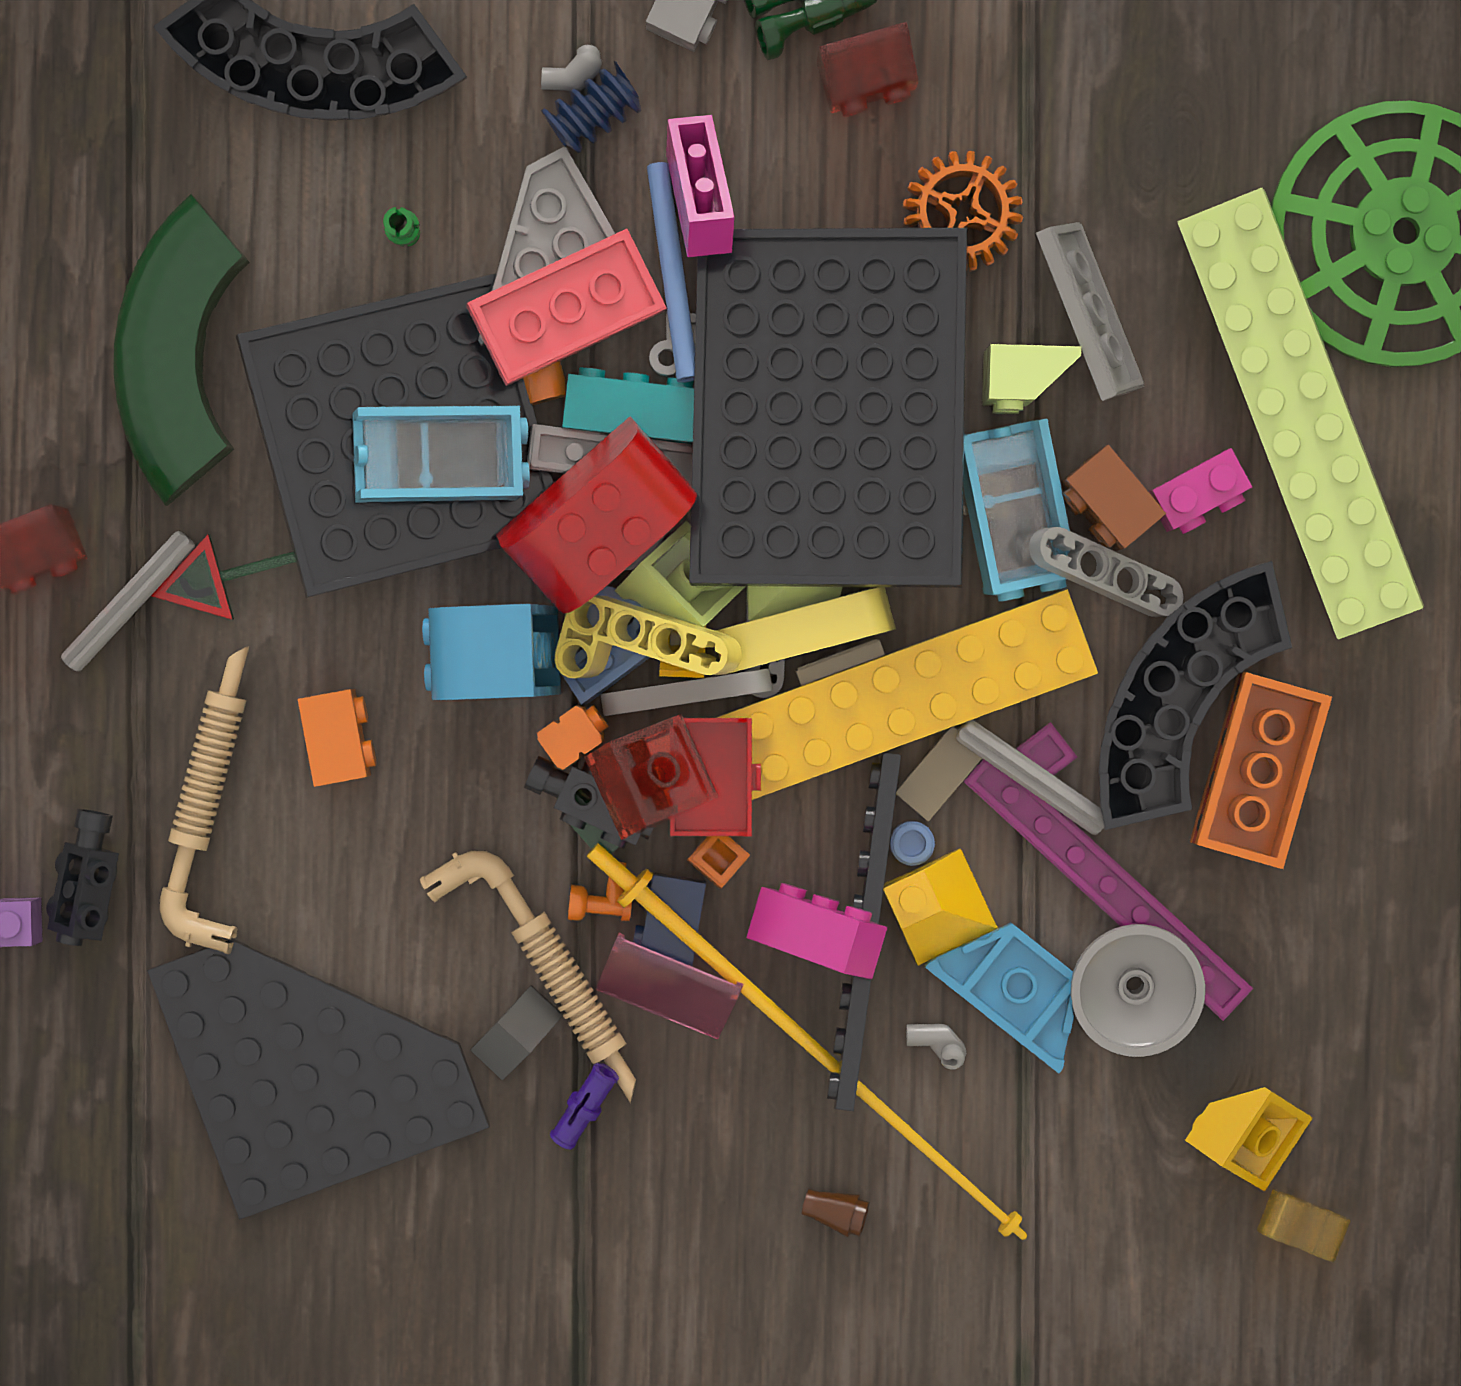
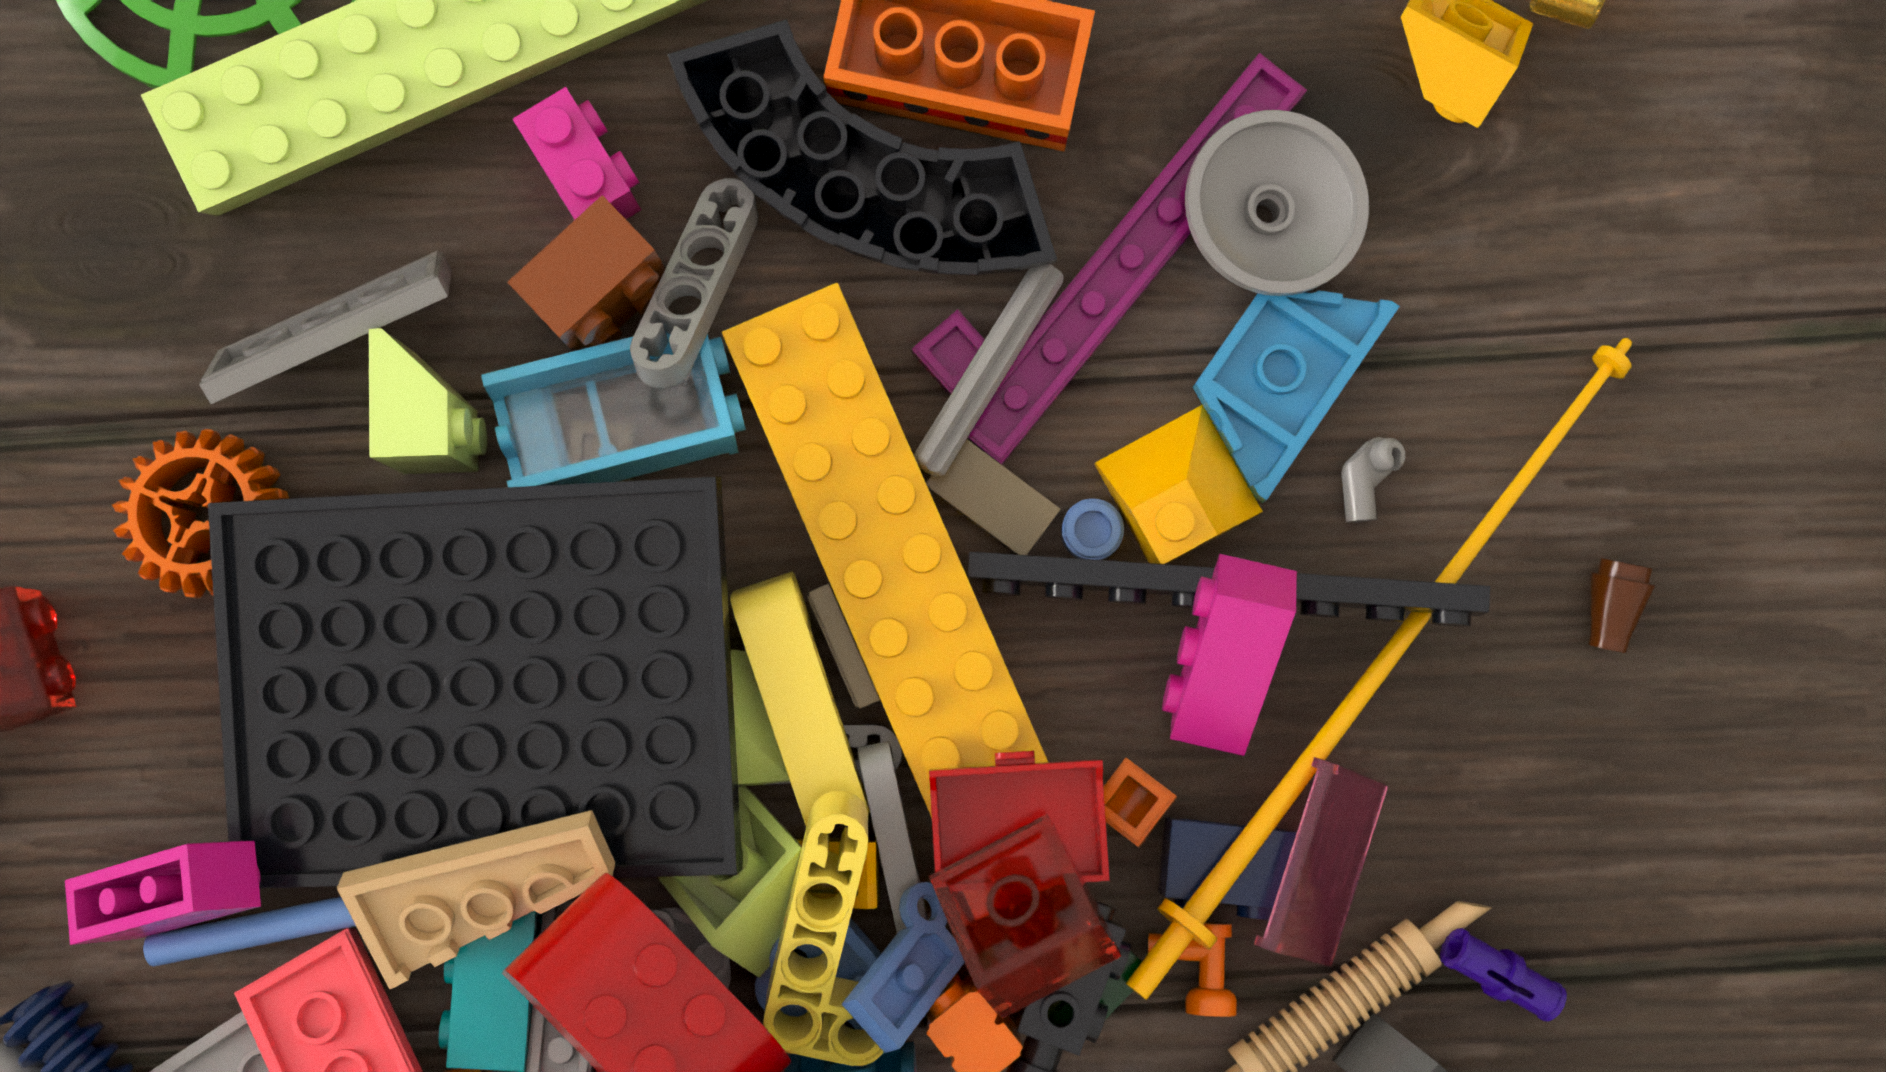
camera: 90 degrees left, 5 degrees down
(616, 696) = (907, 973): none -> medium blue hinge
(684, 380) = (446, 897): none -> tan wing

